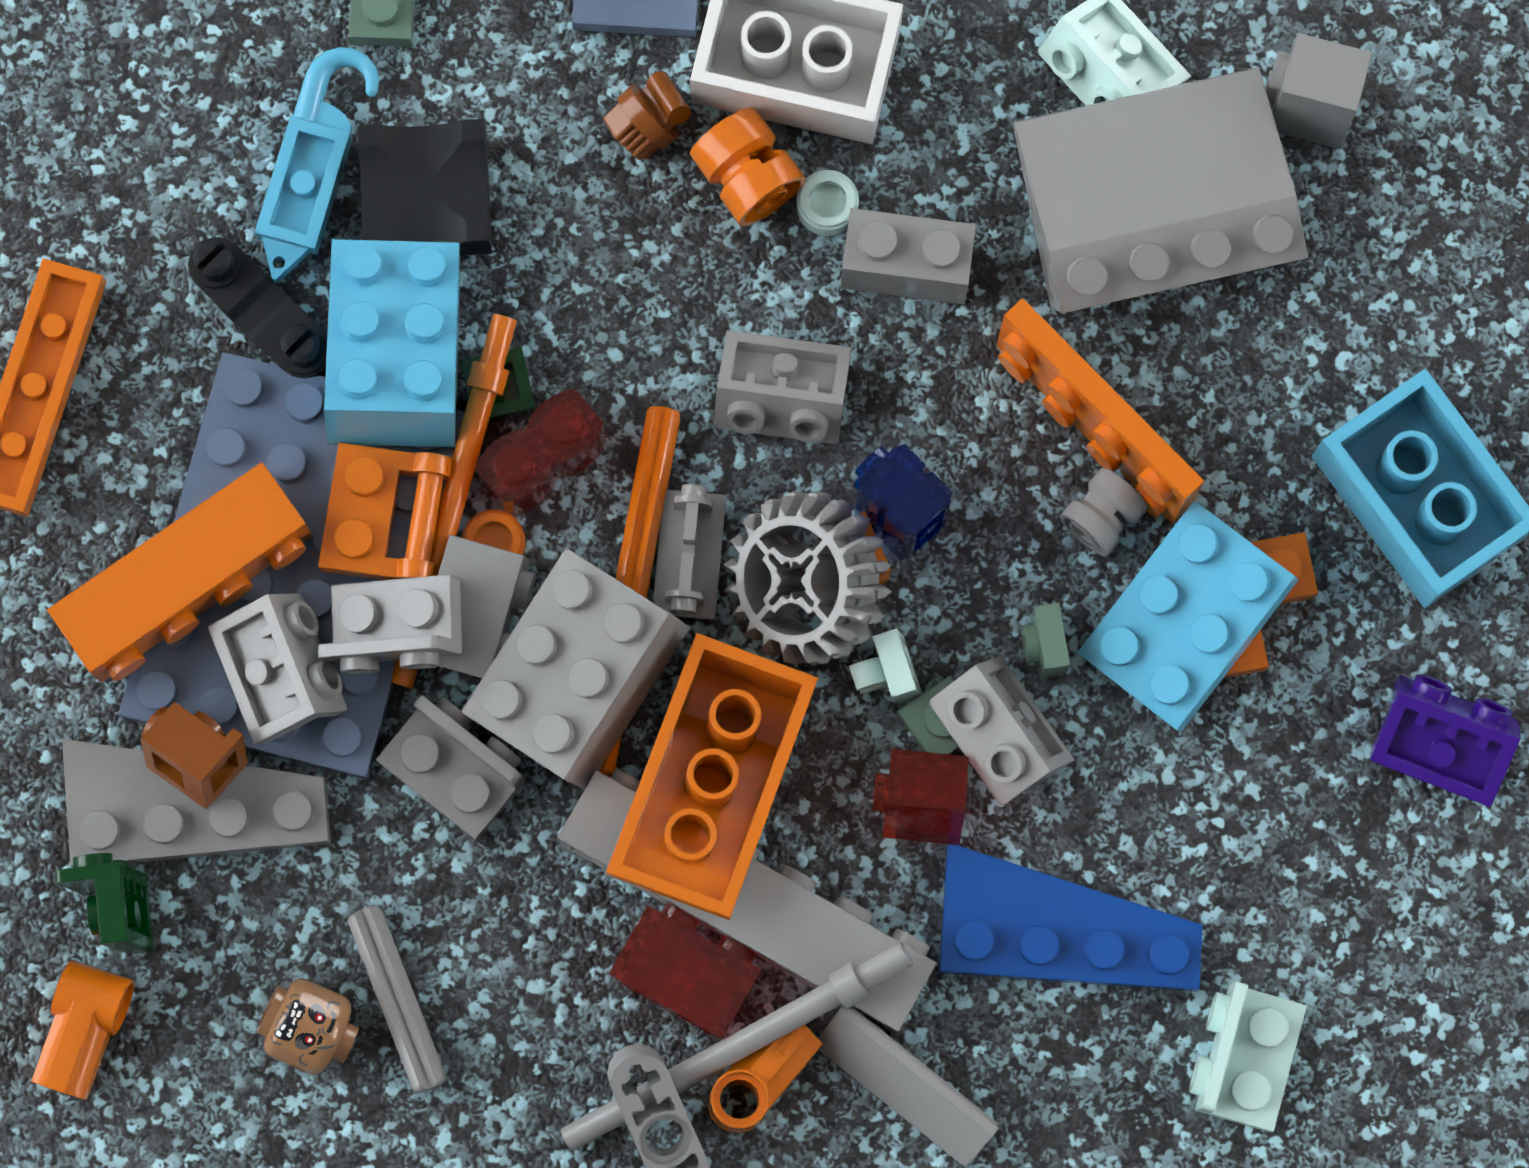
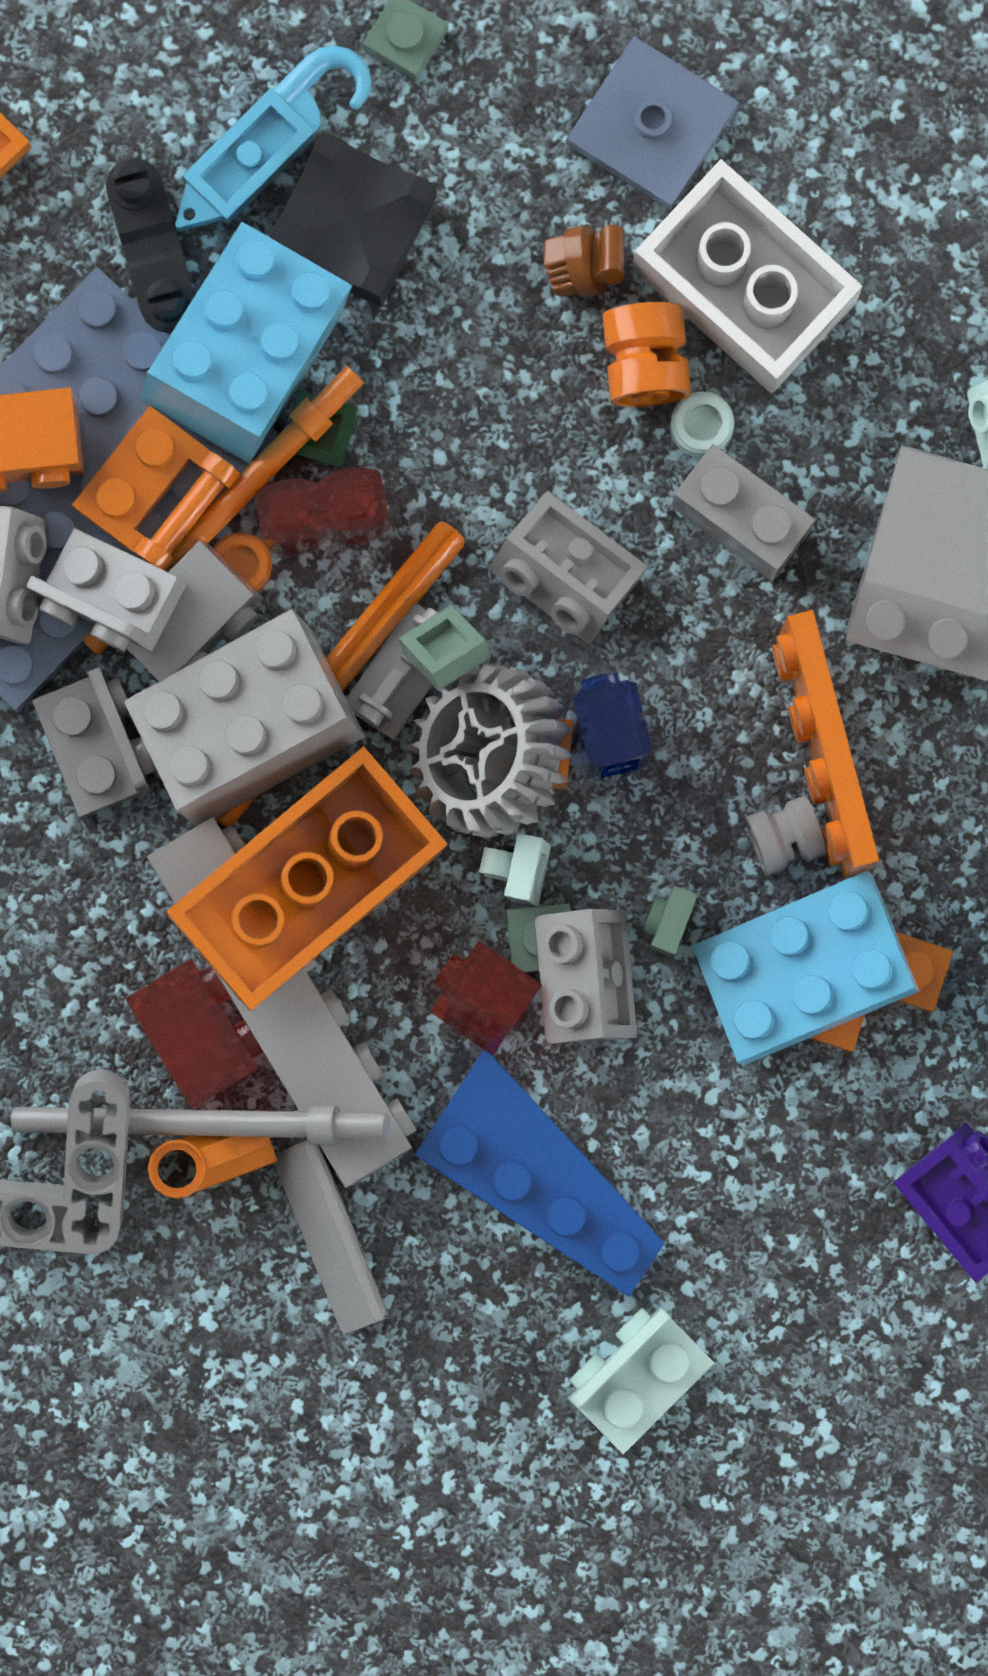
camera: 30 degrees right, 5 degrees up
(718, 508) = (444, 647): none -> sand green plate

